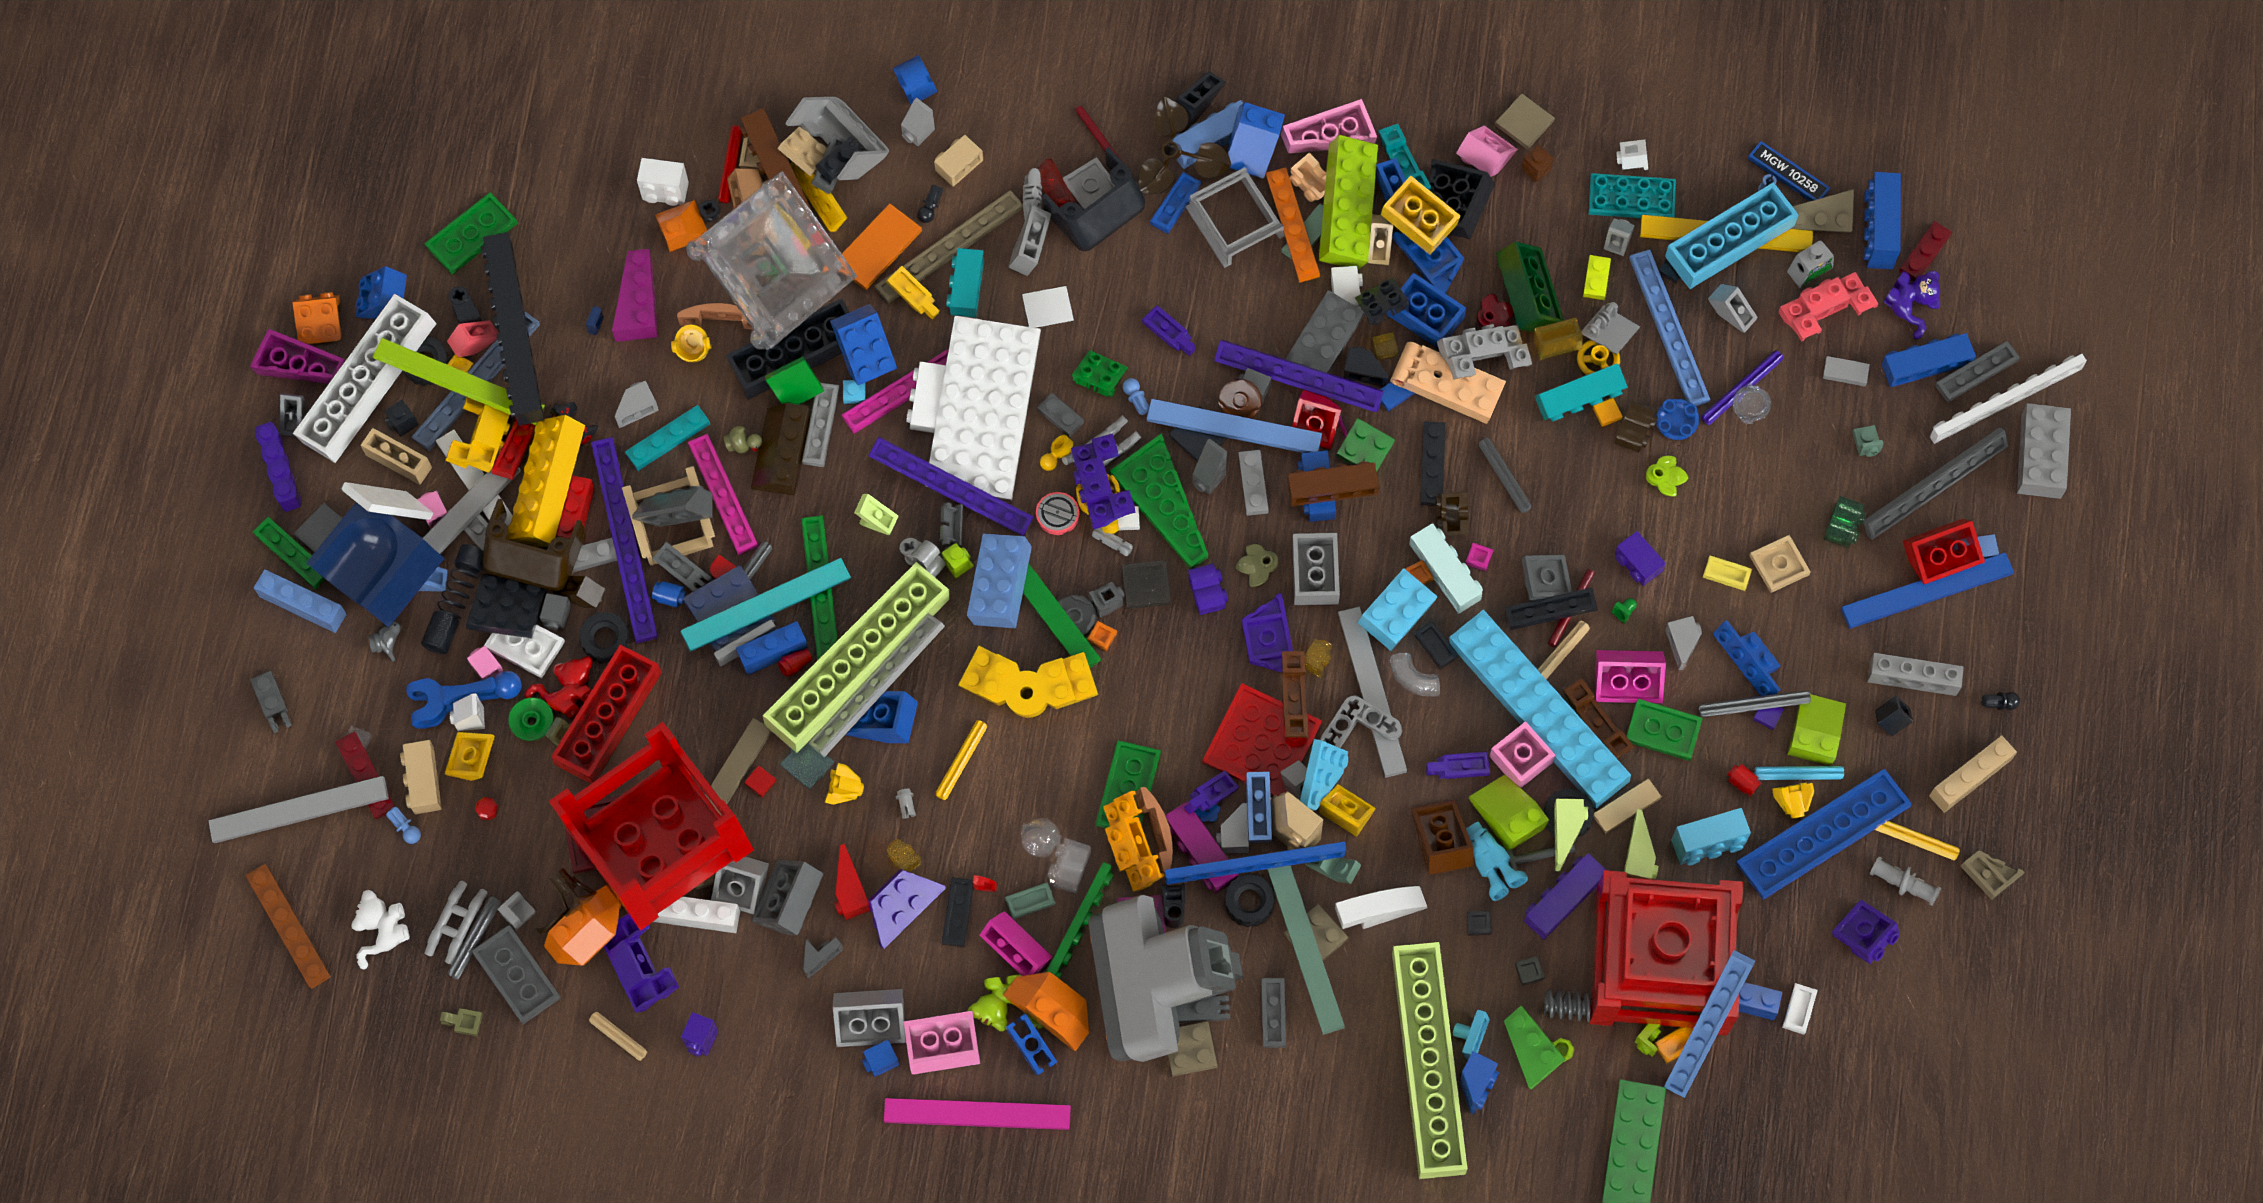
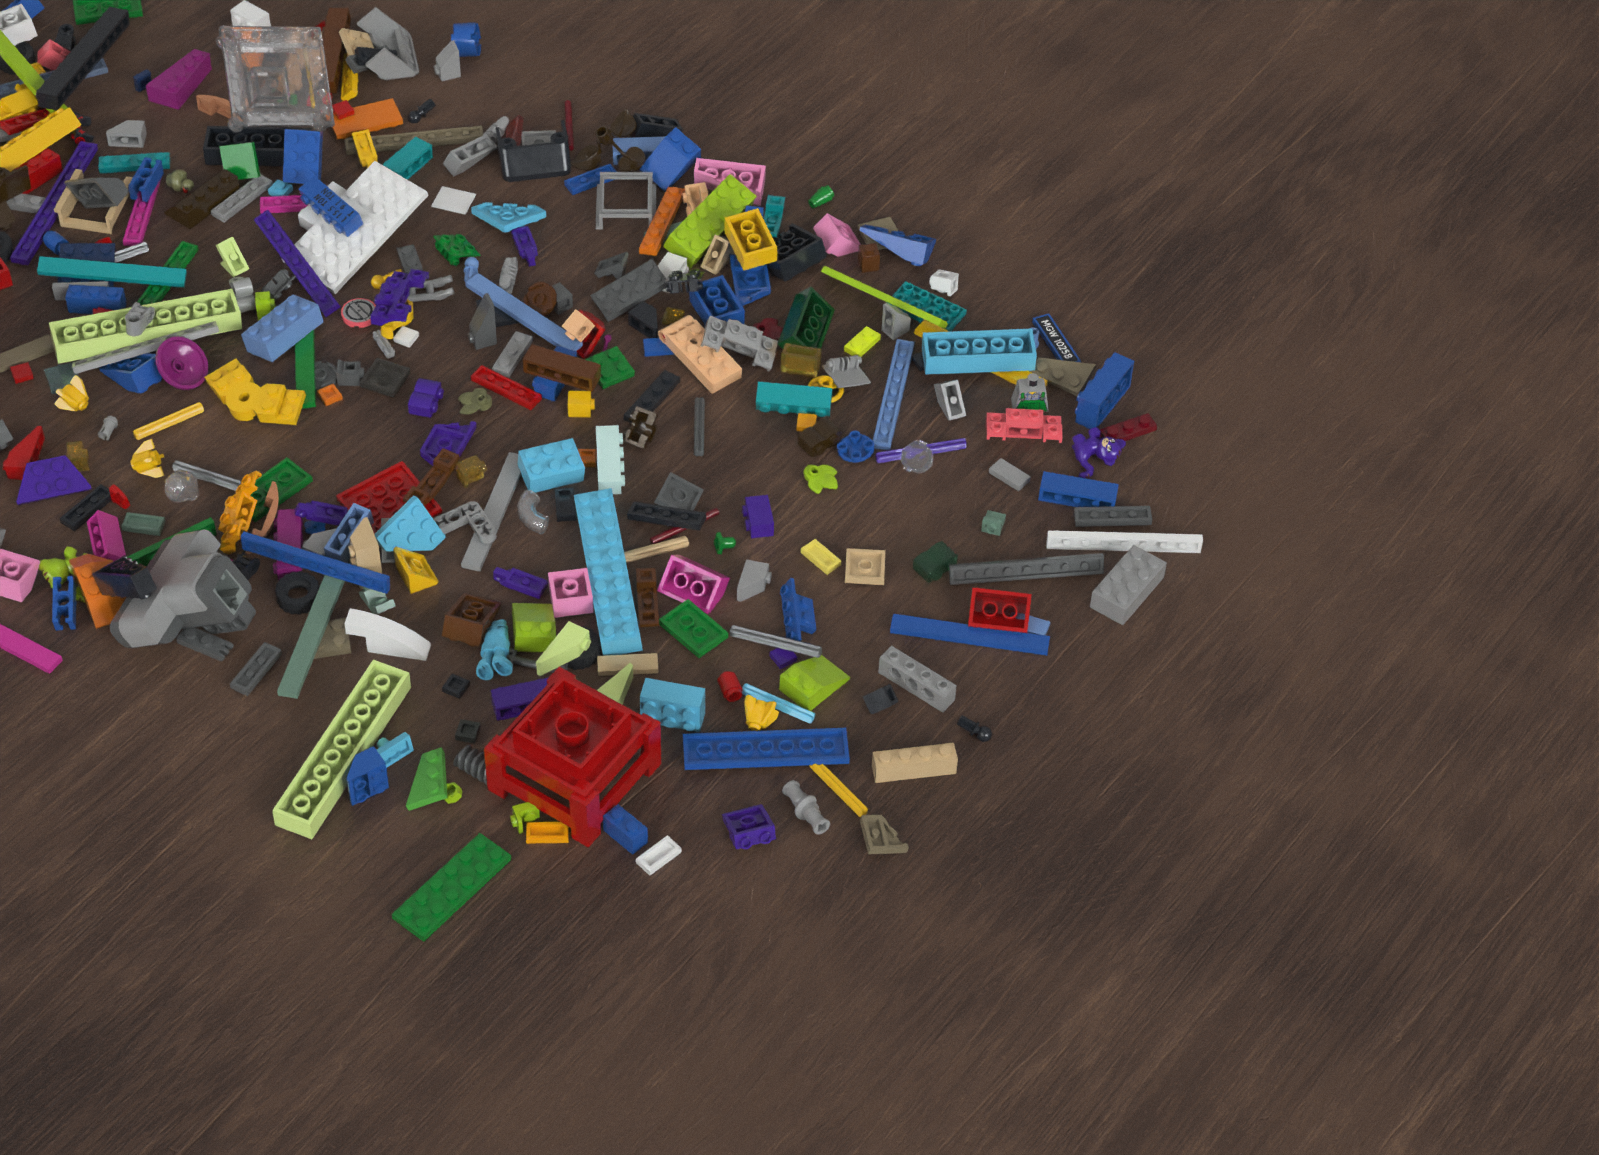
camera: 25 degrees right, 20 degrees down
(680, 567) = (75, 227): dark grey hinge -> none
(691, 343) = (192, 116): yellow cap -> none
(705, 452) = (146, 179): none -> blue piece
(851, 249) = (342, 109): none -> red tile
(856, 657) = (138, 319): none -> light grey piece
(930, 684) = (188, 359): none -> magenta dish
(948, 401) = (330, 206): none -> blue brick
(958, 160) = (460, 95): tan brick -> none
(982, 824) = (146, 460): none -> yellow brick
(1052, 806) = (207, 475): none -> dark grey axle
(1069, 865) = (188, 512): clear brick -> none
(1098, 998) = (125, 579): none -> black wedge
(1125, 303) = (508, 216): none -> medium azure plate
(1161, 499) = (438, 330): green wing -> none
(1180, 381) = (508, 274): none -> light grey hinge
(1194, 1050) = (177, 664): dark tan plate -> none
(1272, 527) = (506, 387): none -> red tile
(1282, 314) = (614, 265): none -> dark grey slope
(1300, 376) = (595, 304): dark purple plate -> none
(1312, 421) = (577, 326): none -> light nougat brick
(1315, 569) = (511, 417): light grey brick -> none
(1369, 512) = (580, 404): none -> yellow brick
(1434, 102) = (821, 197): none -> green cone
(1479, 557) = (640, 466): dark pink tile -> none
(1569, 126) = (912, 248): none -> wedge
(1589, 210) = (885, 297): none -> lime tile
(1709, 1023) = (560, 799): medium blue plate -> none

